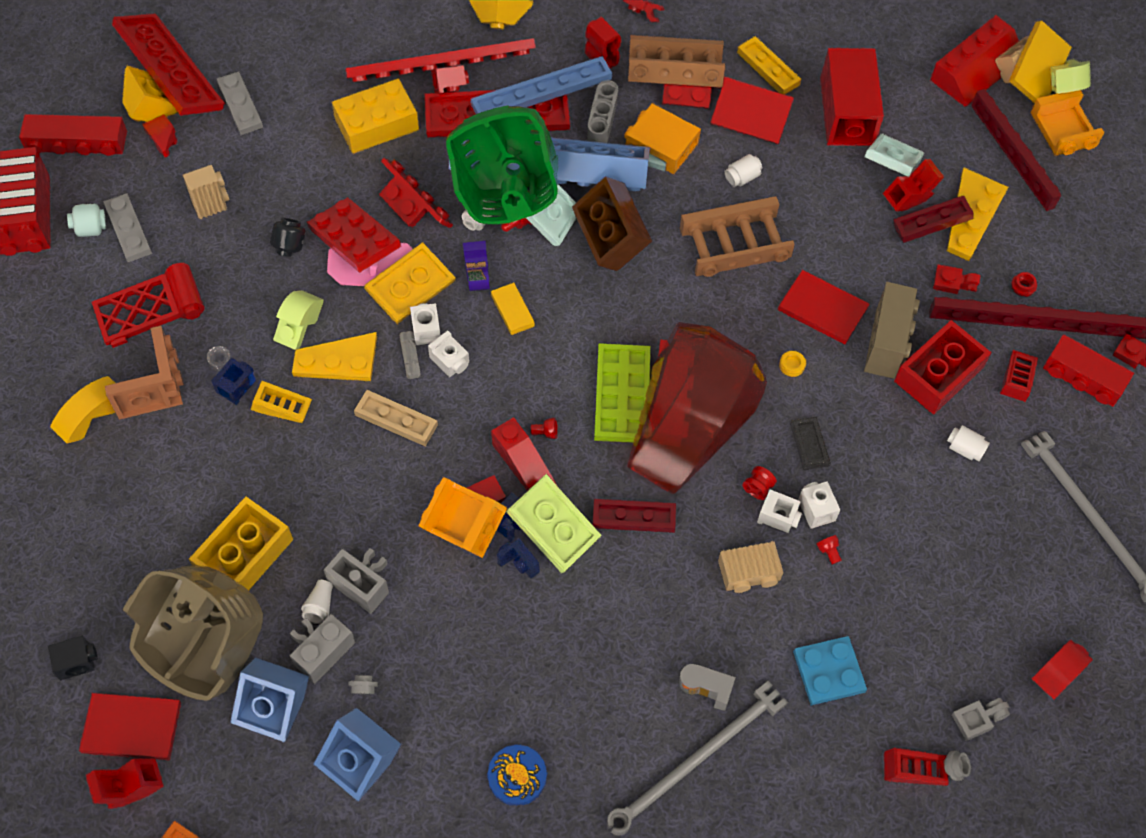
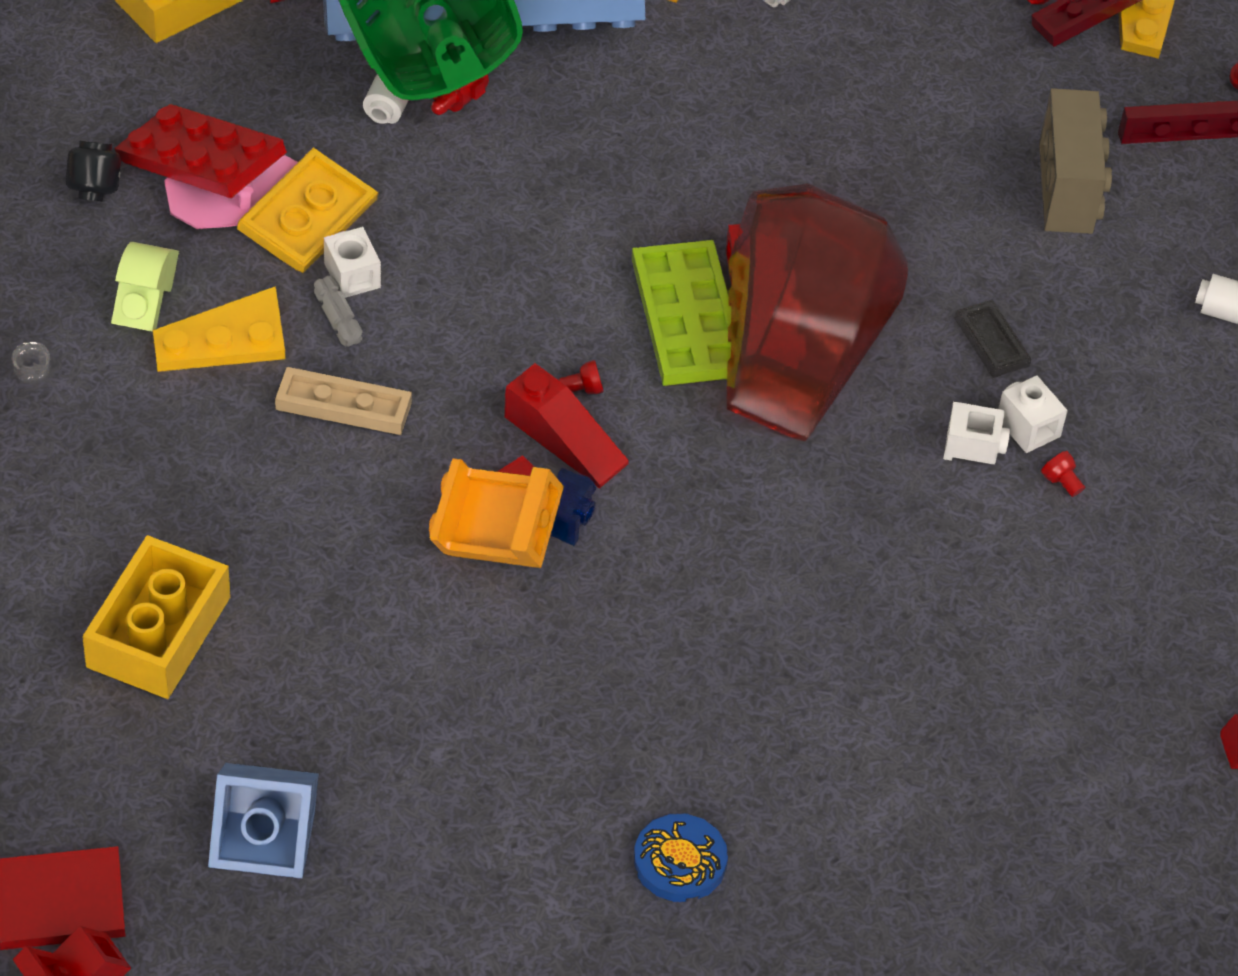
camera: 15 degrees left, 10 degrees down
(205, 642) = (127, 750): dark tan piece -> none
(233, 372) = (67, 387): clear blue brick -> none
(269, 408) = (137, 420): yellow slope -> none
(318, 603) = (299, 677): white cone -> none
(321, 648) = (326, 732): light grey brick -> none
(356, 753) = (424, 869): medium blue slope -> none
(358, 579) = (355, 628): light grey brick -> none
(362, 685) = (405, 775): light grey plate -> none
(408, 200) = (267, 93): red bracket -> none
(440, 354) = (401, 299): white brick -> none
(476, 265) = (407, 169): dark purple leg -> none
(512, 308) = (481, 223): yellow tile -> none
(523, 561) = (601, 556): clear blue bracket -> none
(553, 523) = (638, 502): yellowish green tile -> none
(556, 219) = (514, 86): light aqua tile -> none
(611, 224) = (606, 76): reddish brown brick -> none
(630, 812) = (865, 876): light grey hinge -> none
(634, 515) = (755, 476): dark red plate -> none
(707, 682) = (933, 681): light grey leg -> none
(740, 215) = (799, 41): medium nougat fence -> none
(750, 567) = (952, 515): tan brick -> none
(759, 482) = (933, 400): red wheel -> none
(792, 363) = (935, 234): yellow tile -> none
(823, 307) = (959, 151): red tile -> none
(829, 670) = (1109, 636): dark azure plate -> none
(942, 367) = (1161, 201): red brick -> none
(951, 280) = (1142, 88): red plate -> none

